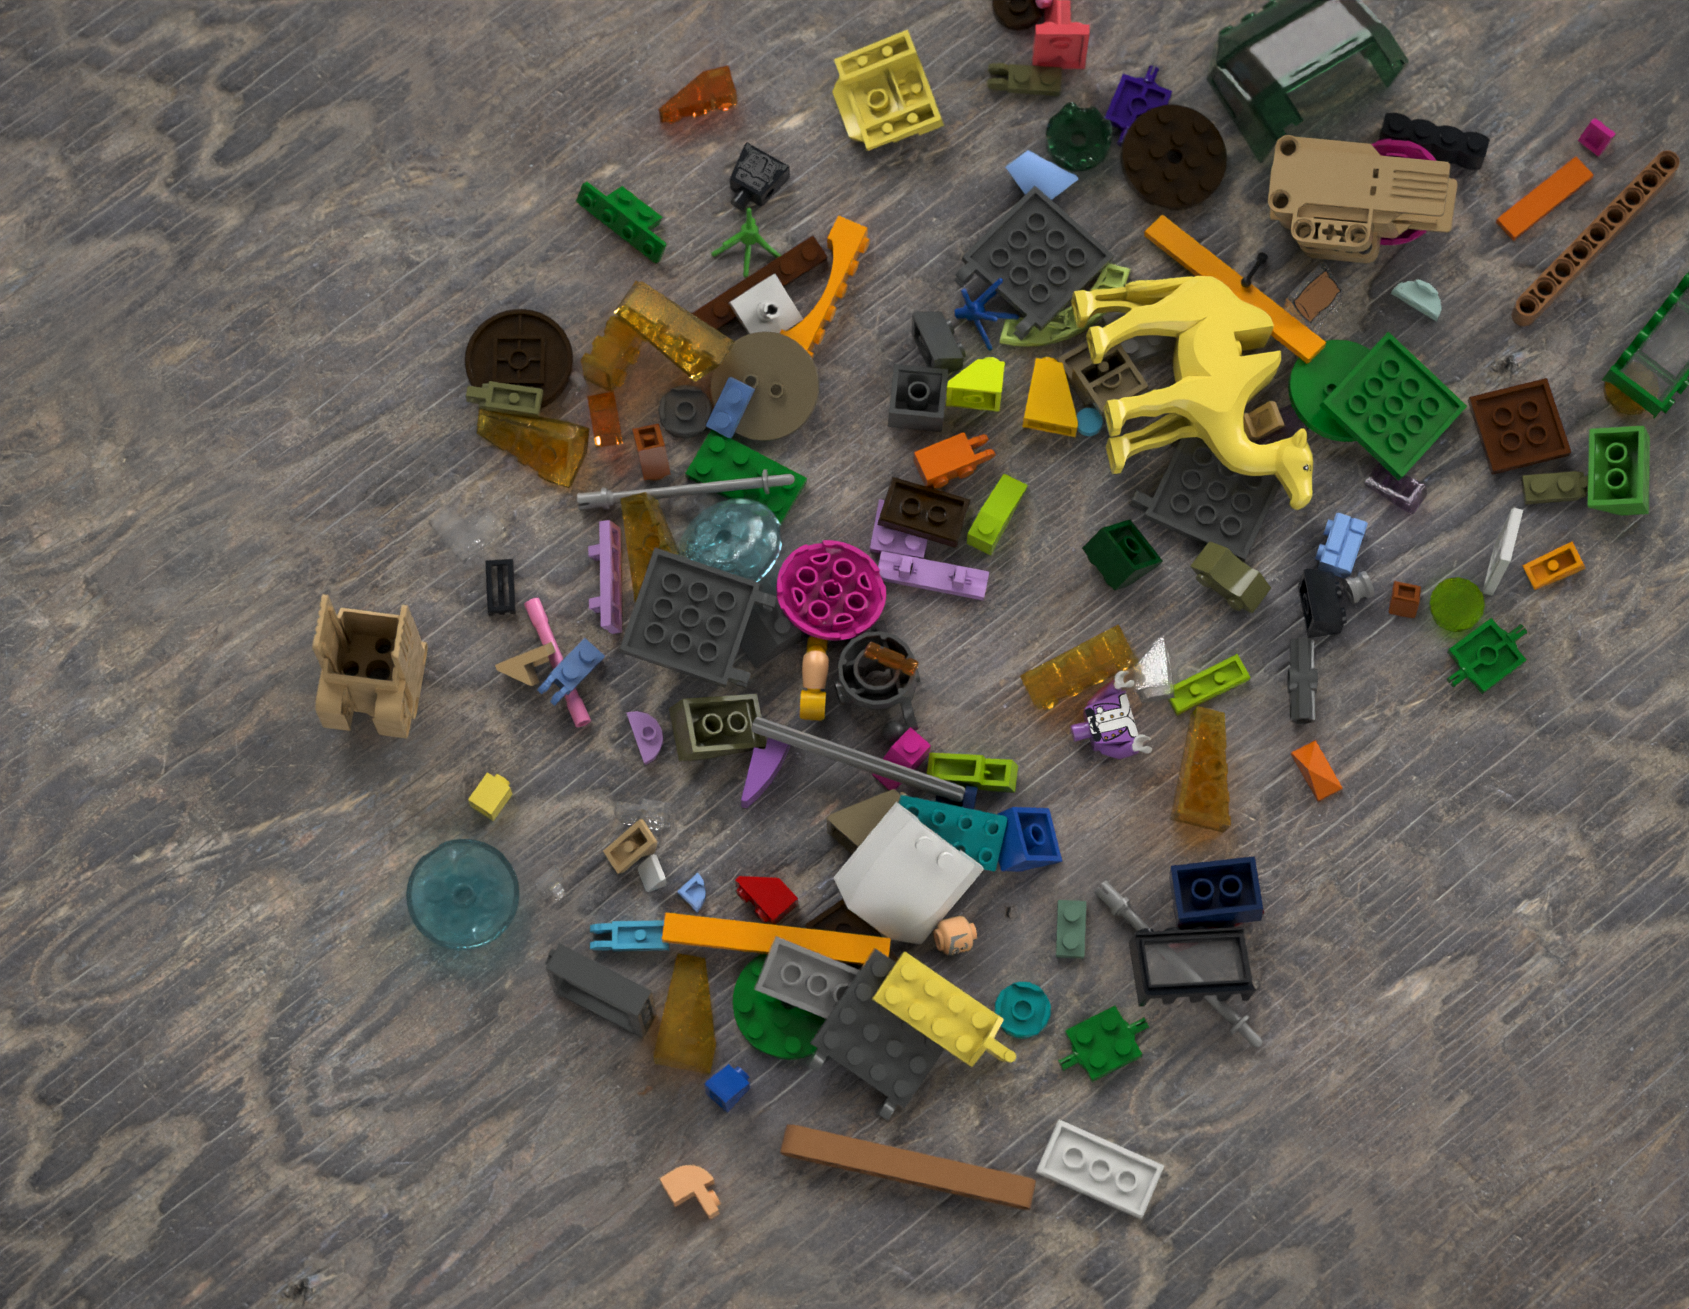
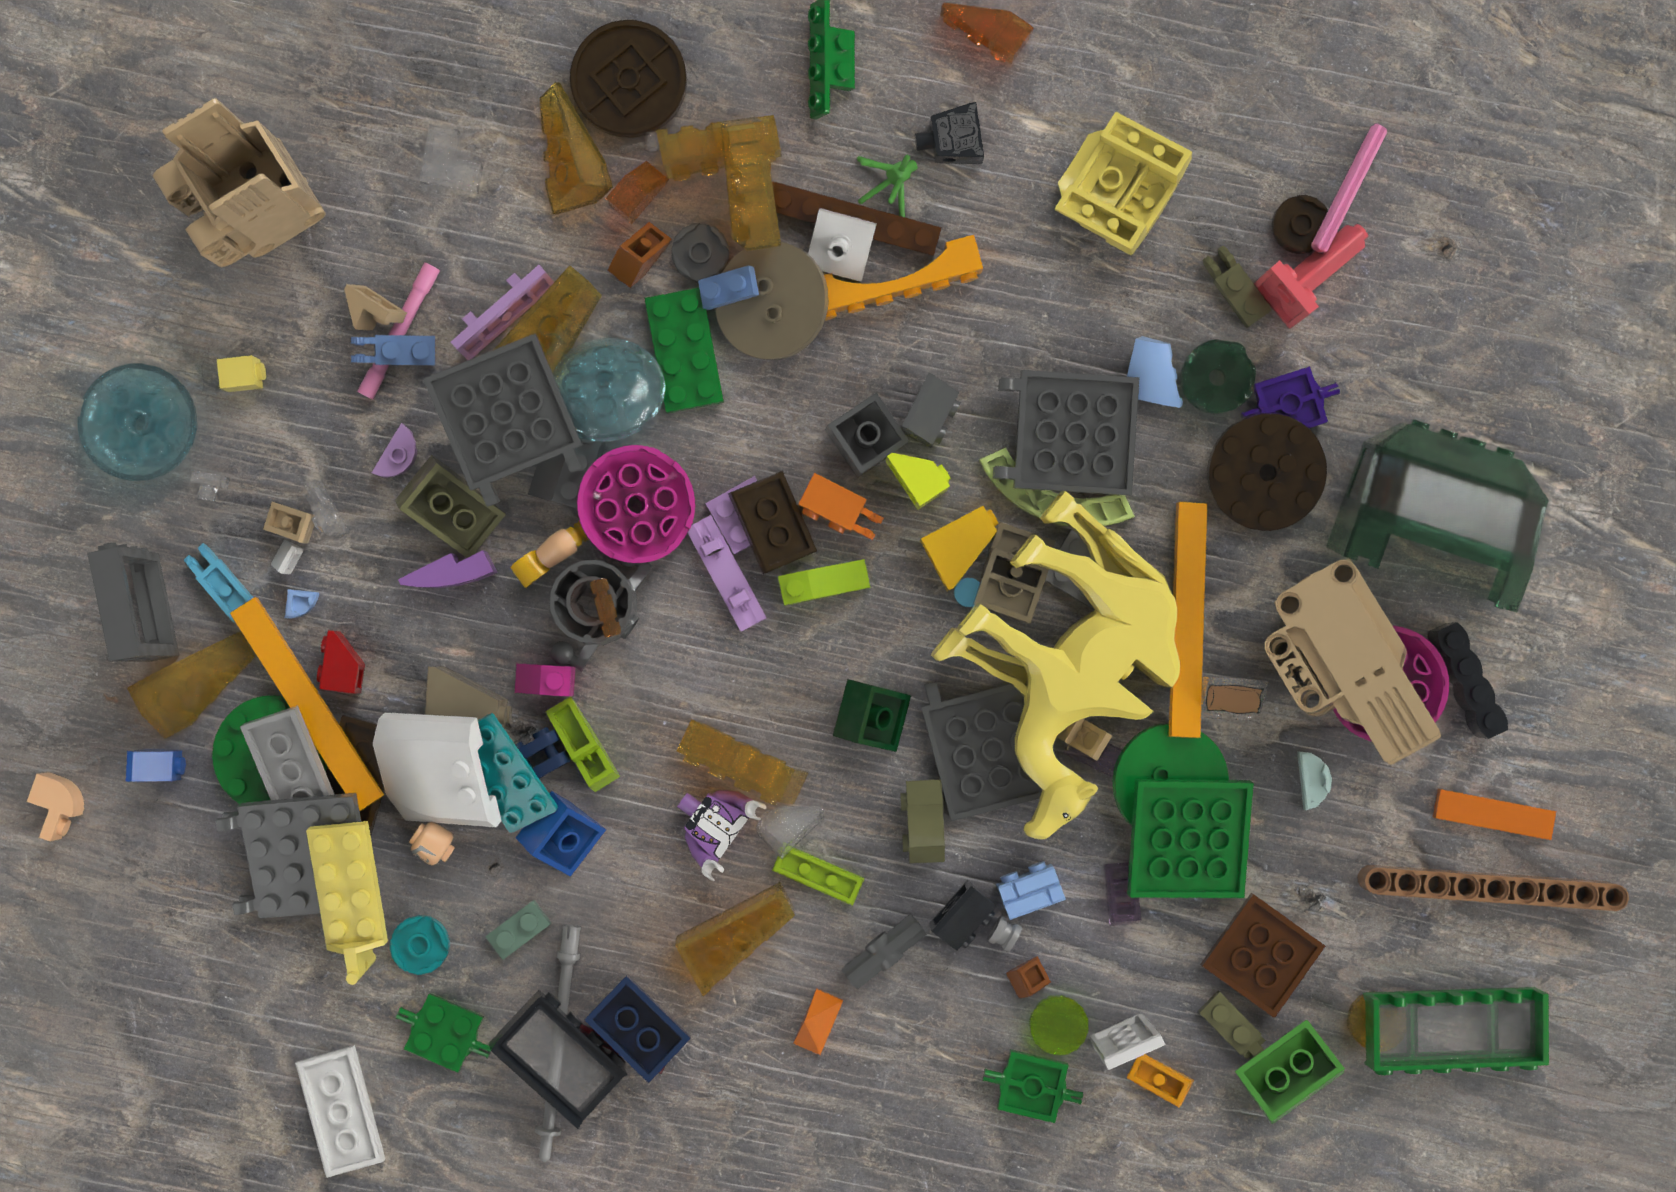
camera: 50 degrees right, 15 degrees up
(501, 609) = (433, 238): black tile -> none
(507, 398) = (581, 98): olive hinge -> none
(606, 498) = (568, 252): light grey bar -> none
(858, 759) = (507, 647): light grey axle -> none
(908, 1167) = (213, 959): medium nougat beam -> none
(975, 311) = (986, 420): blue plant -> none
(1261, 259) = (1237, 618): black hinge -> none
(1596, 137) = (1589, 816): dark pink tile -> none

